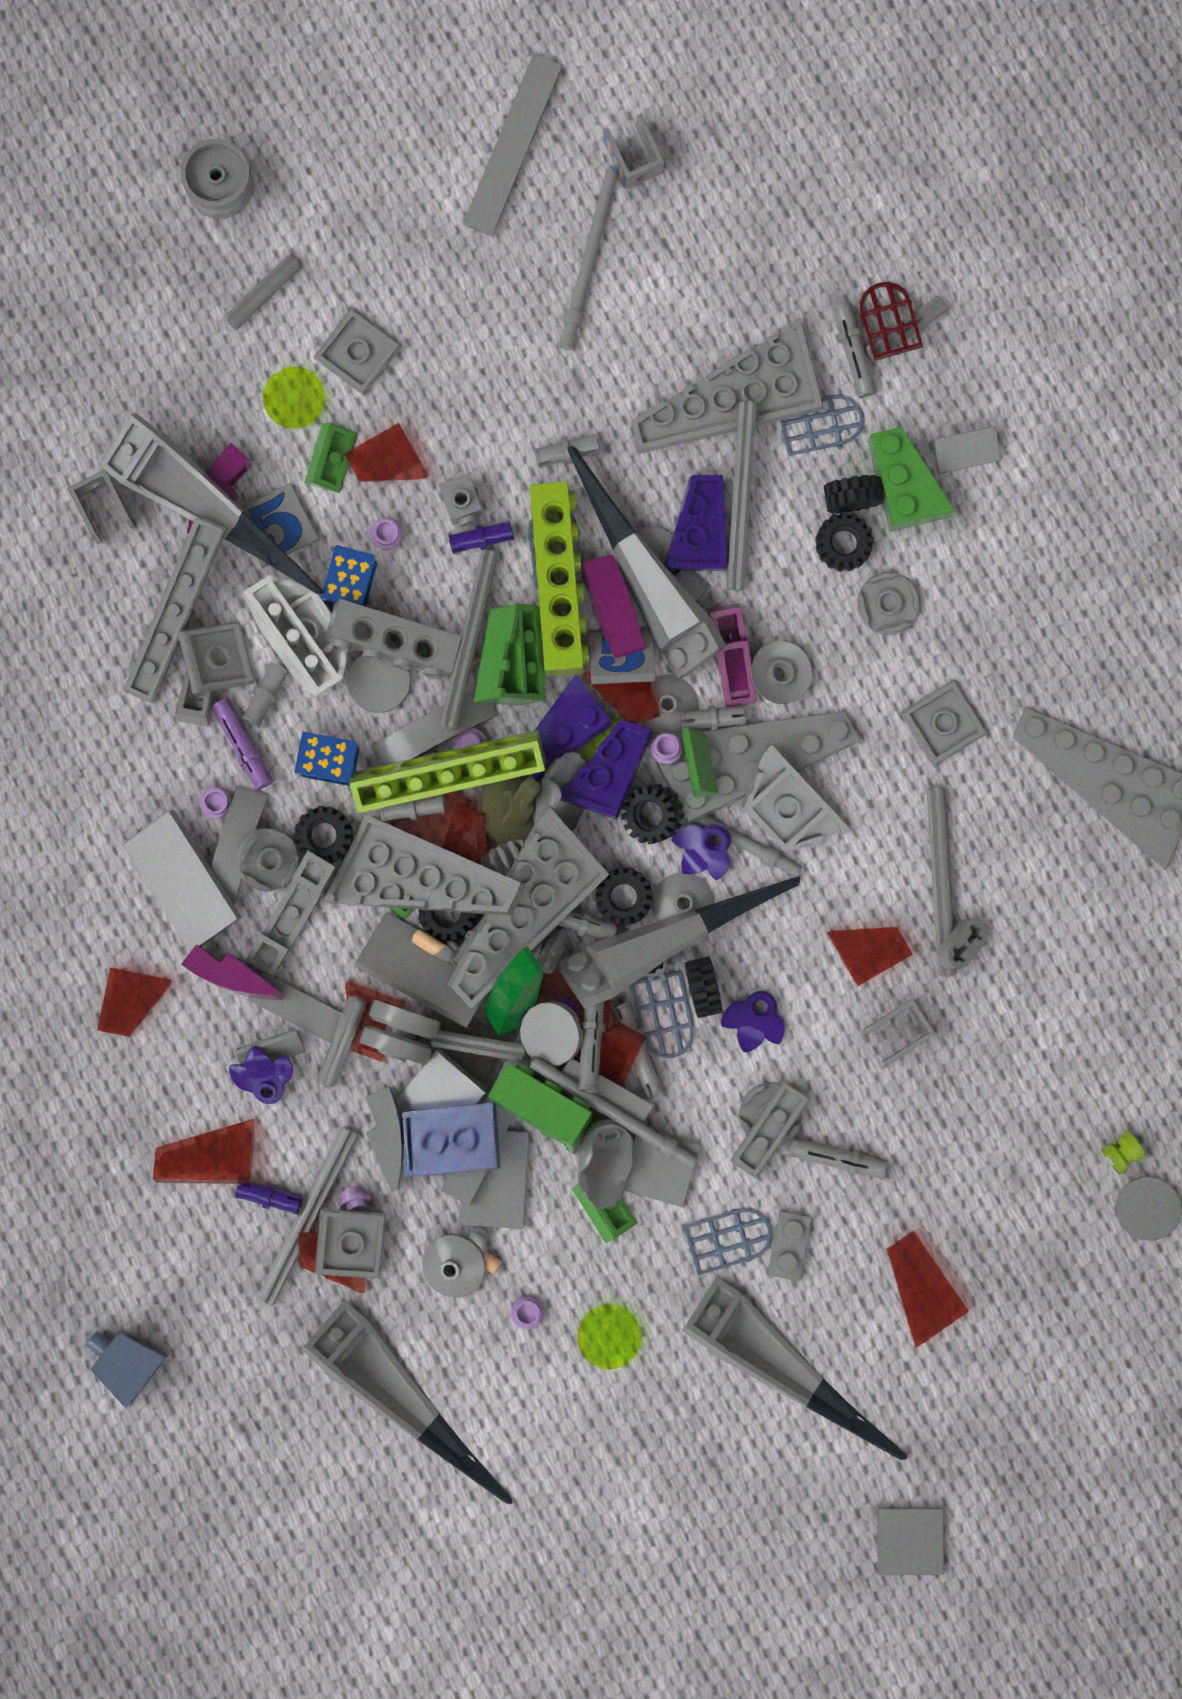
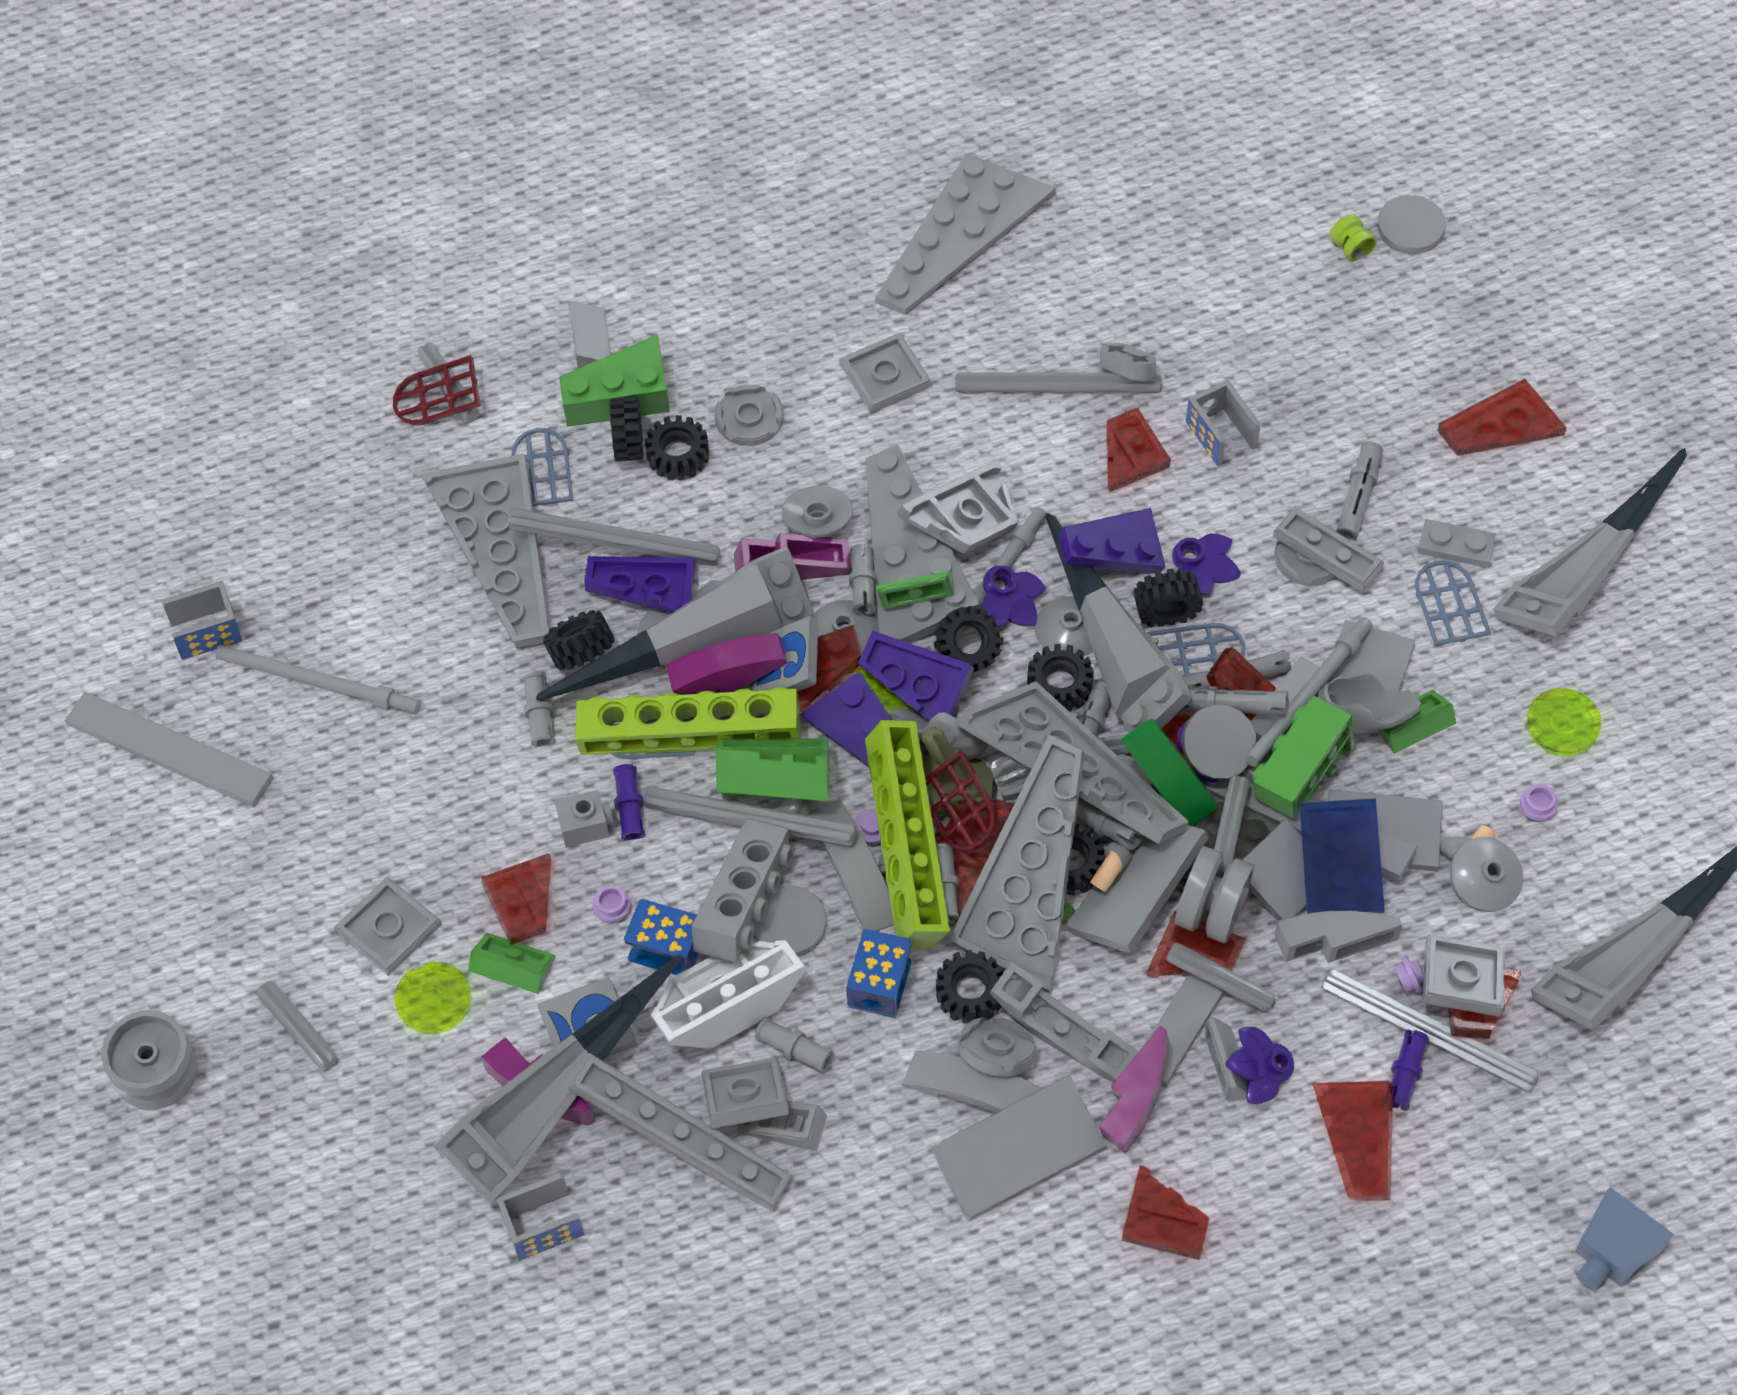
camera: 80 degrees left, 25 degrees down
(215, 802) = (921, 1109): lavender plate -> none
(248, 755) = (854, 1072): medium lavender pin -> none
(486, 814) = (975, 810): none -> dark red window
(621, 484) = (578, 640): none -> black tyre
(666, 748) = (895, 621): lavender plate -> none
(760, 939) = (1114, 543): none -> dark purple wing
(854, 349) = (464, 428): light grey pin -> none

